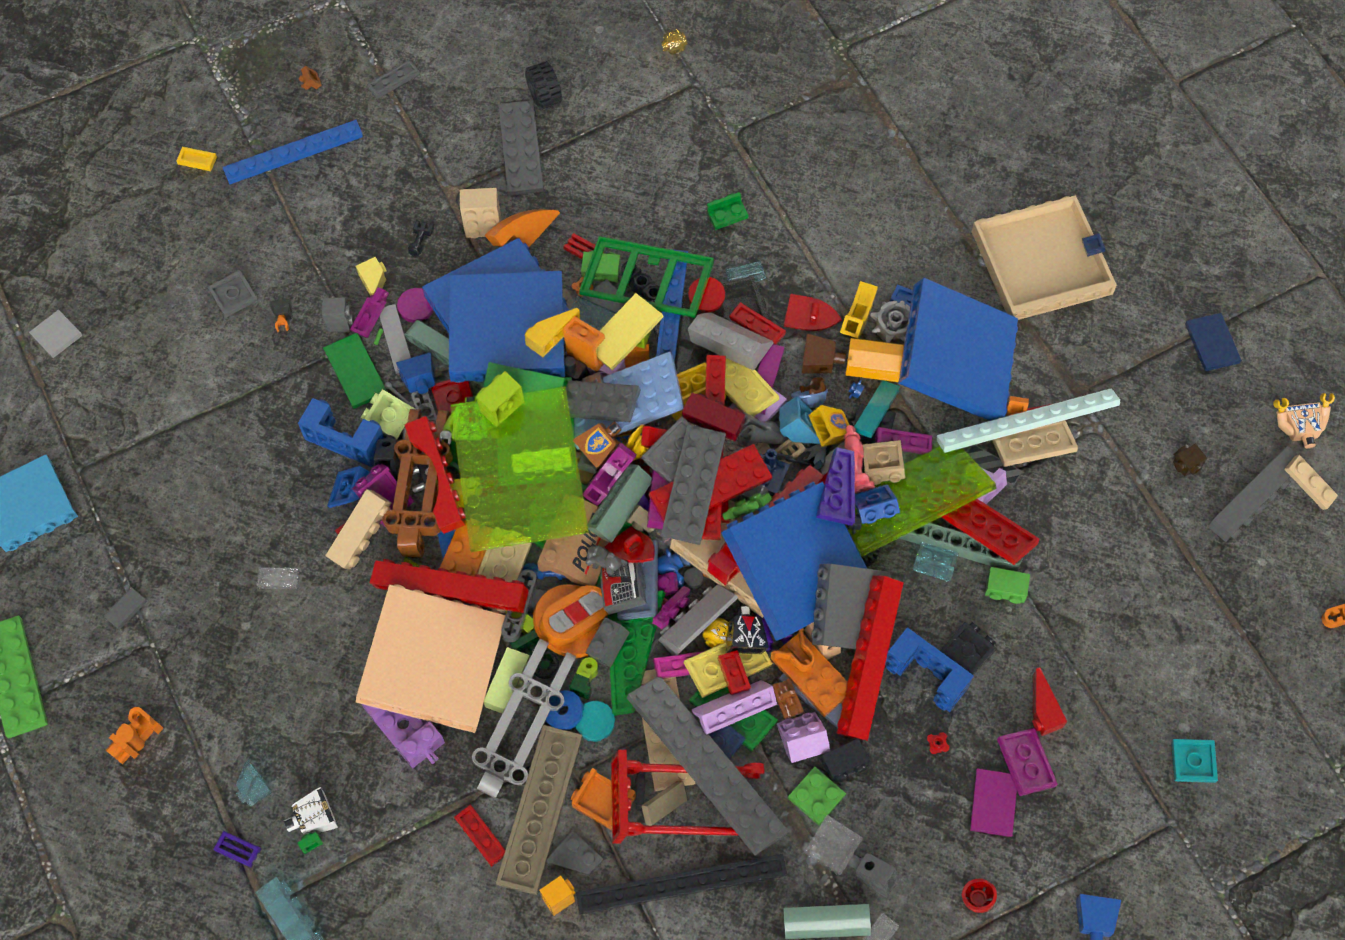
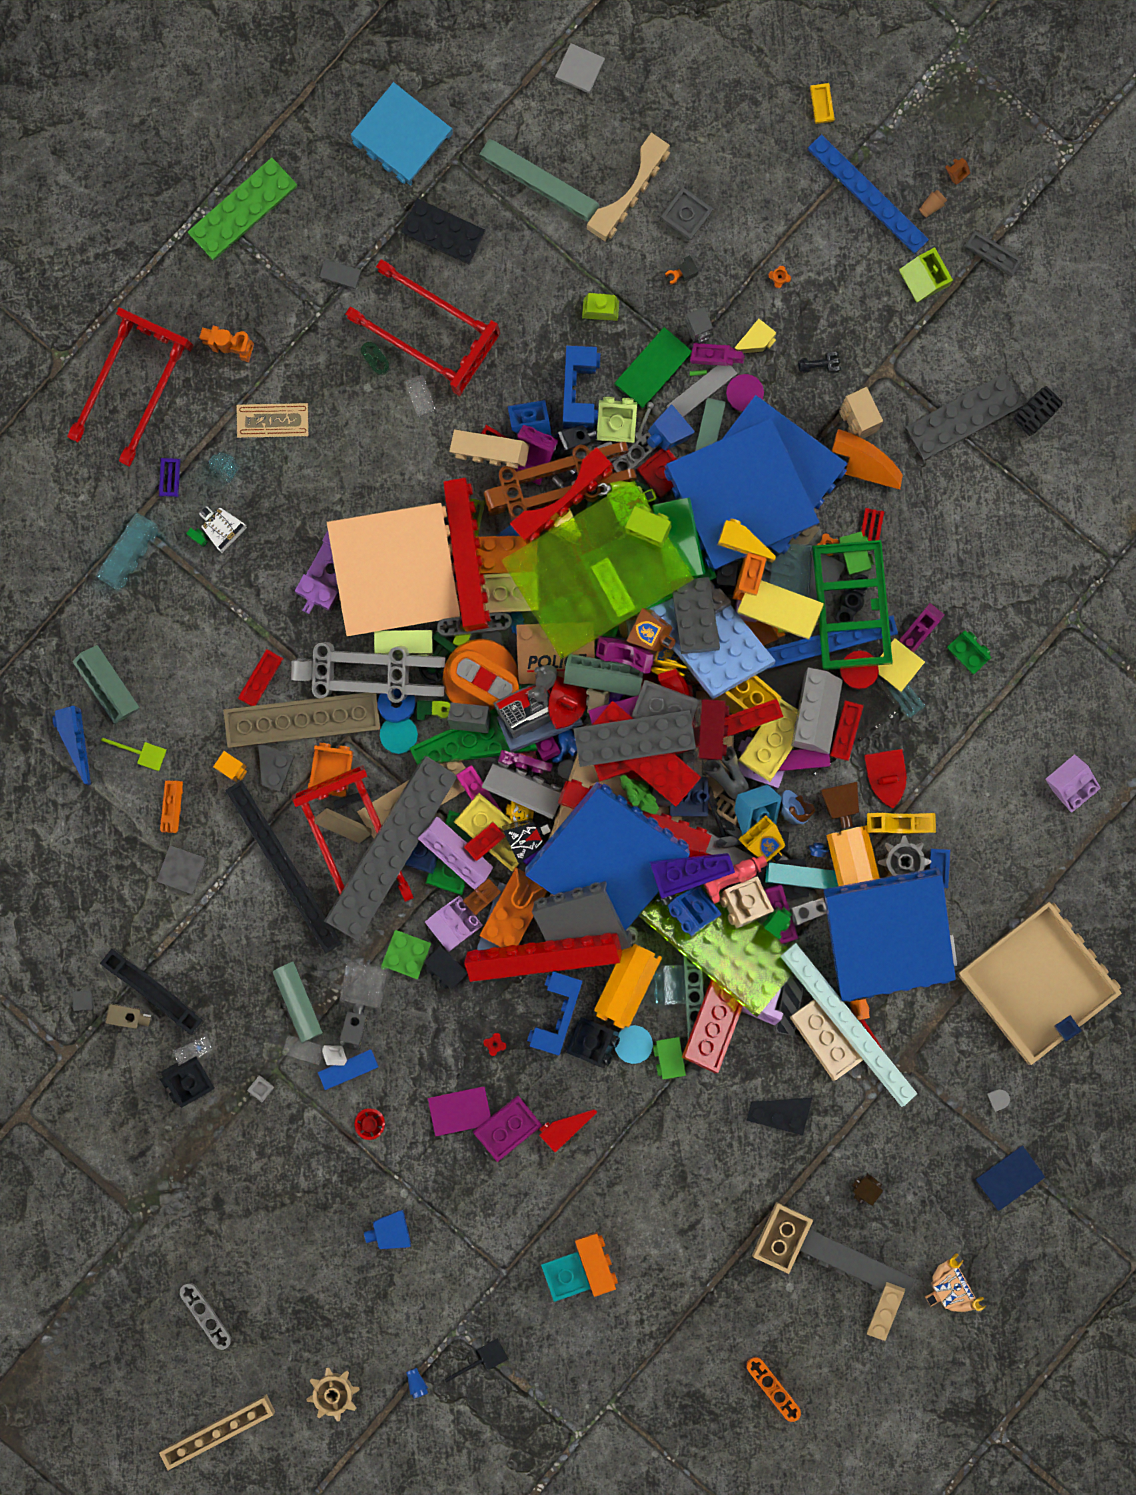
camera: 65 degrees right, 20 degrees up
(92, 796) = (147, 328): none -> red piece
(135, 402) = (539, 180): none -> sand green beam
(136, 502) = (443, 231): none -> black plate
(200, 357) = (607, 218): none -> tan arch
(221, 606) = (372, 360): none -> clear green beam
(231, 727) = (272, 420): none -> tan sticker
(272, 540) = (469, 363): none -> red piece
(278, 388) = (600, 307): none -> lime torso
(327, 105) = (932, 204): none -> medium nougat cone
(327, 237) = (779, 281): none -> orange plate
(385, 129) = (926, 275): none -> lime slope
(690, 238) = (921, 627): none -> magenta slope
(723, 266) = (904, 666): none -> light yellow tile
(875, 172) = (1073, 783): none -> lavender slope
(895, 904) = (334, 1055): none -> white plate
(910, 416) = (808, 911): none -> white leg
(911, 441) = (778, 921): none -> green brick
(914, 898) = (353, 1067): none -> blue tile
(927, 596) = (627, 985): none -> light orange brick
(983, 612) = (634, 1044): none -> medium azure tile
(1093, 509) = (781, 1114): none -> black wing
(1138, 326) = (999, 1099): none -> light grey tile
(1190, 725) = (596, 1264): none -> orange brick
(1214, 546) = (782, 1237): none -> tan brick
(1255, 865) = (491, 1354): none -> black piece

